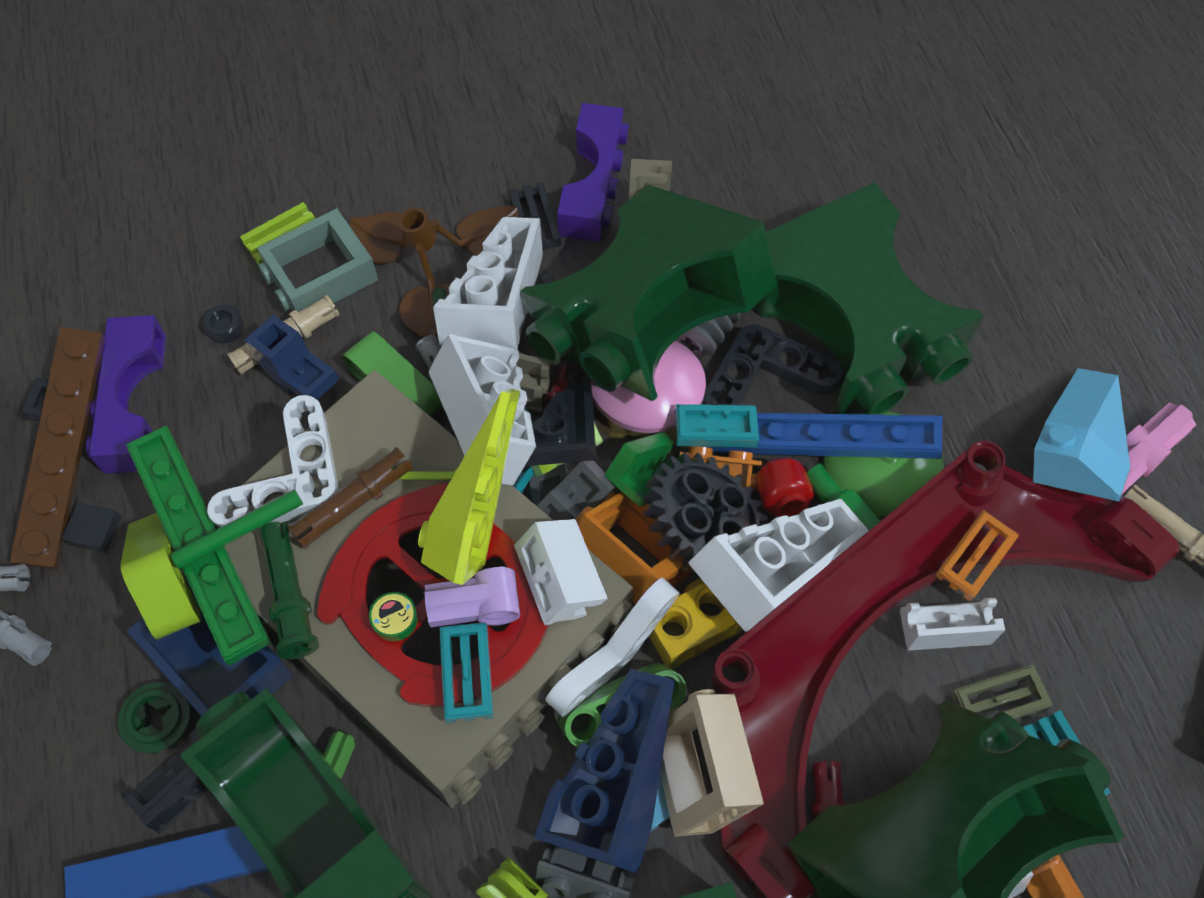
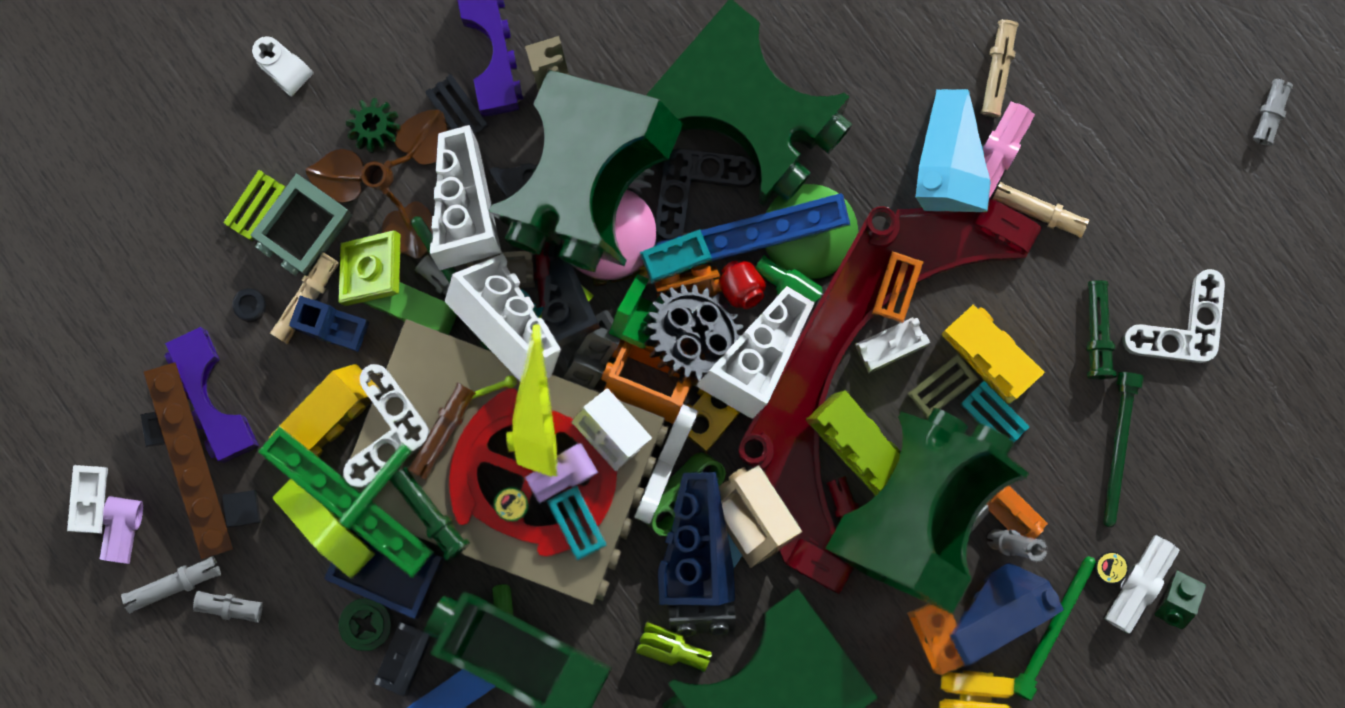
camera: 20 degrees left, 20 degrees up
(235, 446) = (328, 409): none -> yellow wedge
(365, 323) = (369, 268): none -> lime tile
(375, 118) = (284, 68): none -> white piece
(441, 197) = (361, 128): none -> dark green gear
(872, 714) = (856, 440): none -> lime wedge
(1085, 679) = (992, 354): none -> yellow wedge
(1165, 356) = (1001, 54): none -> tan pin

